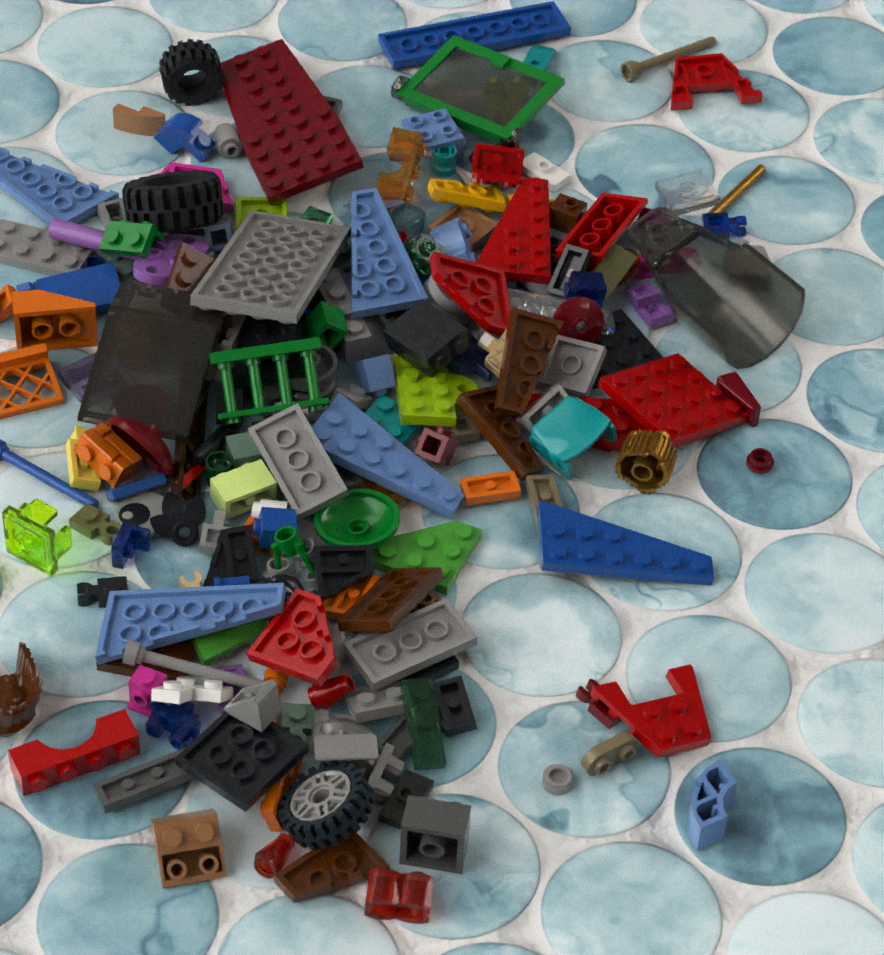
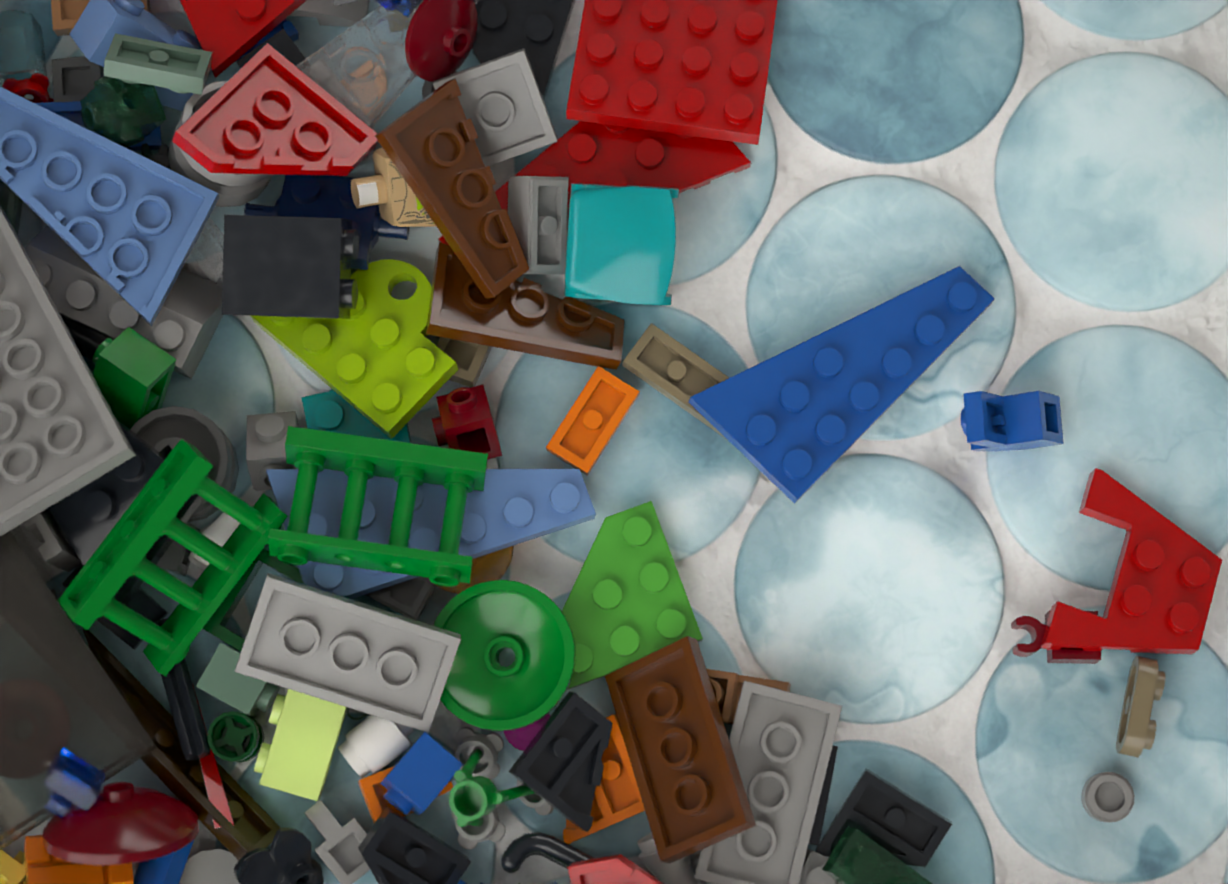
camera: 40 degrees left, 35 degrees up
(142, 411) = (71, 782): none -> clear blue tile
(374, 374) = (253, 371): medium blue slope -> none
(382, 413) = (361, 460): none -> green fence
(448, 240) = (157, 64): none -> sand green plate
(646, 460) = (750, 191): pearl gold brick -> none
(667, 618) = (1011, 421): none -> blue brick
(760, 461) = (866, 26): dark red plate -> none

